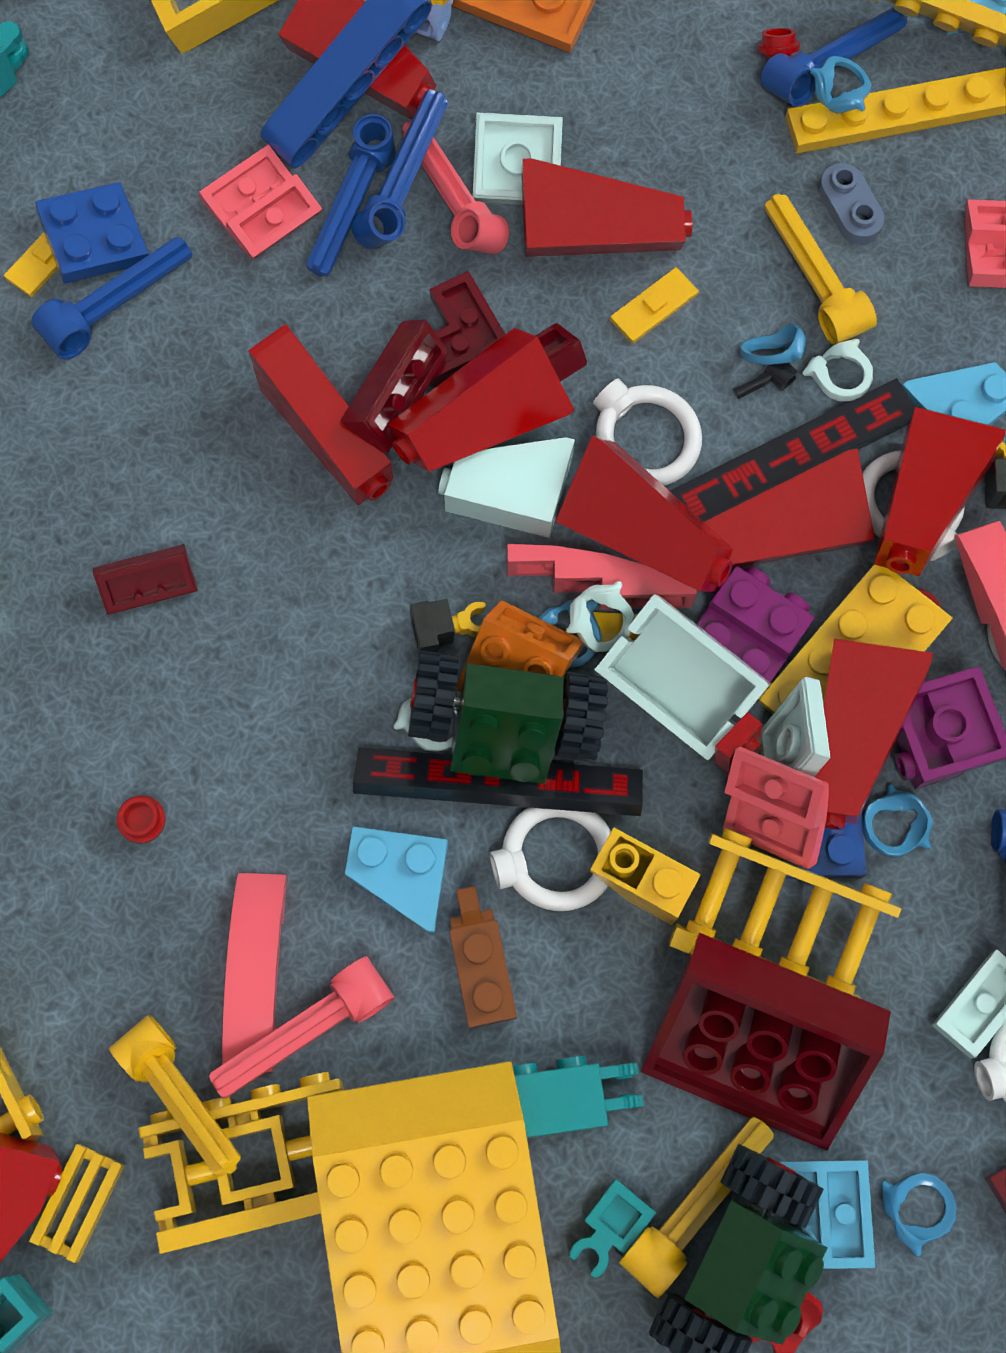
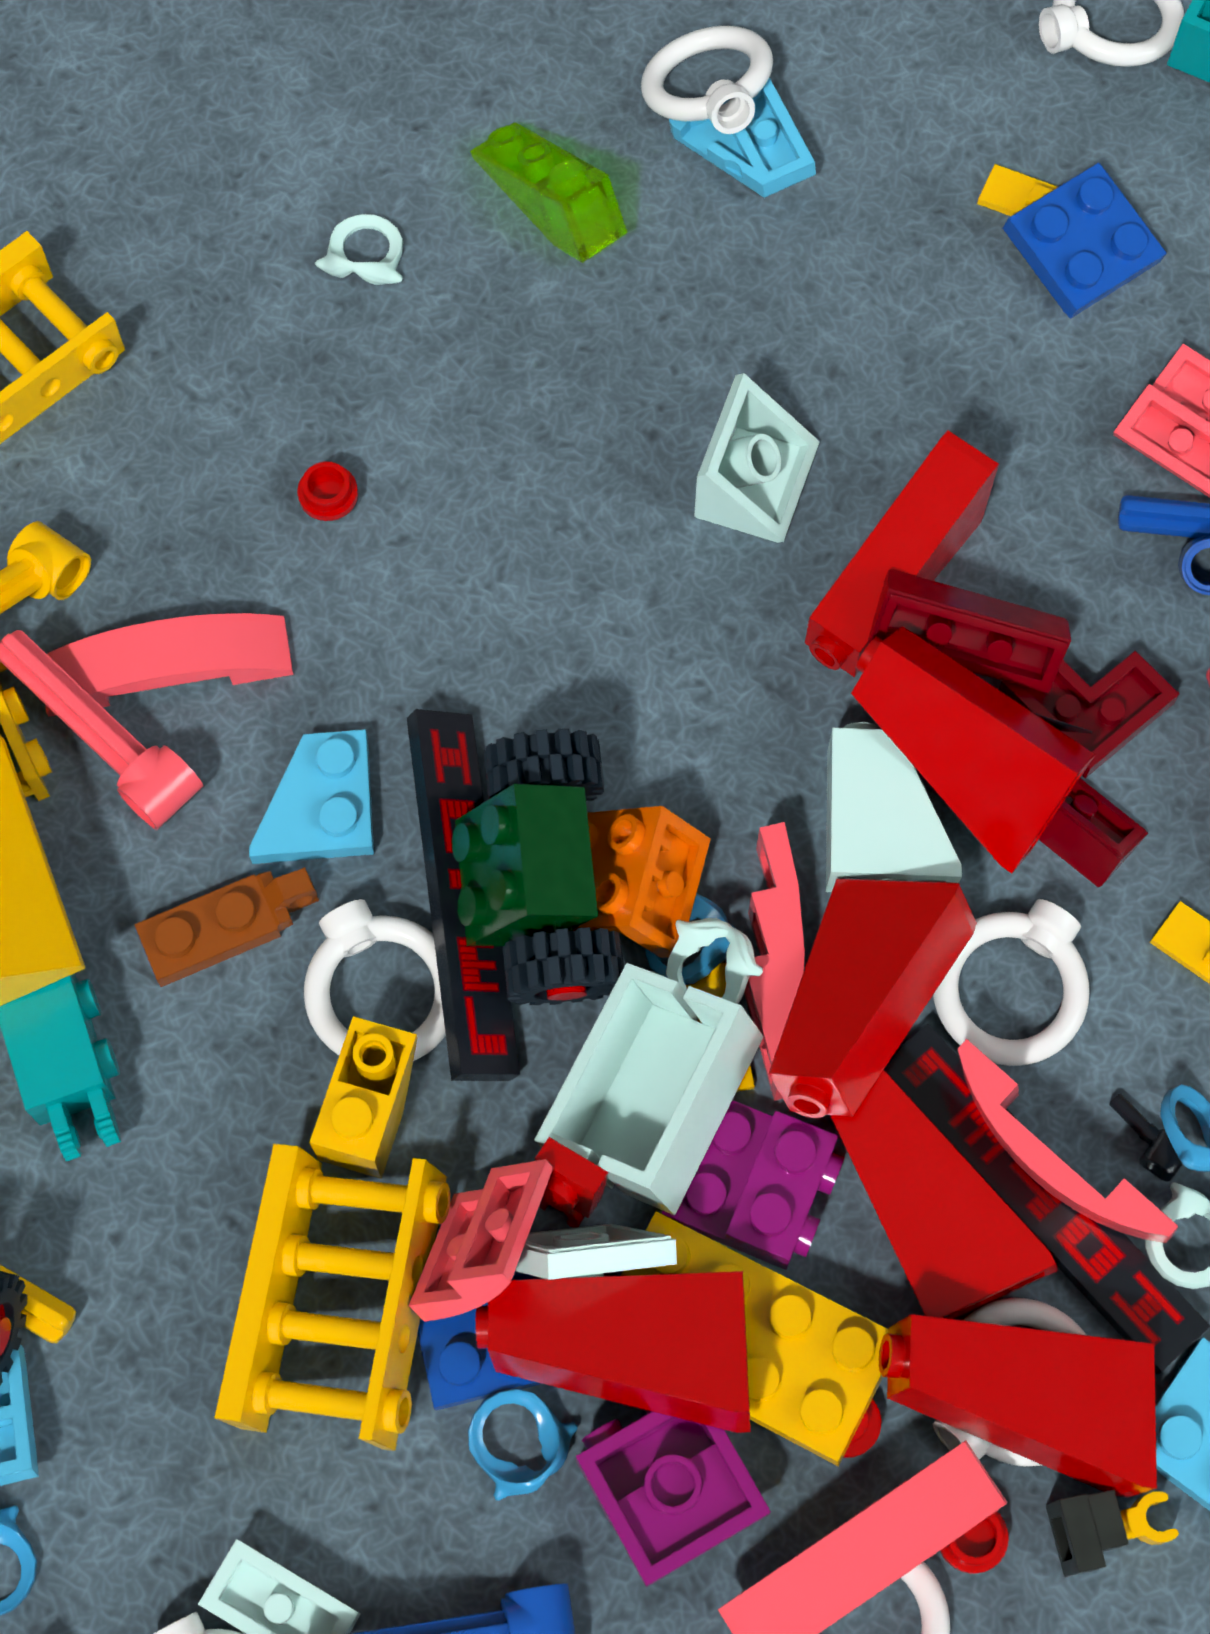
camera: 80 degrees right, 5 degrees down
(68, 325) = (945, 245): blue axle -> none
(145, 579) = (631, 417): dark red plate -> none
(211, 503) = (754, 464): none -> light aqua slope
(436, 626) = (658, 770): pearl dark grey piece -> none
(732, 459) = (1123, 1208): none -> coral slope
(767, 1041) = (170, 1294): dark red slope -> none

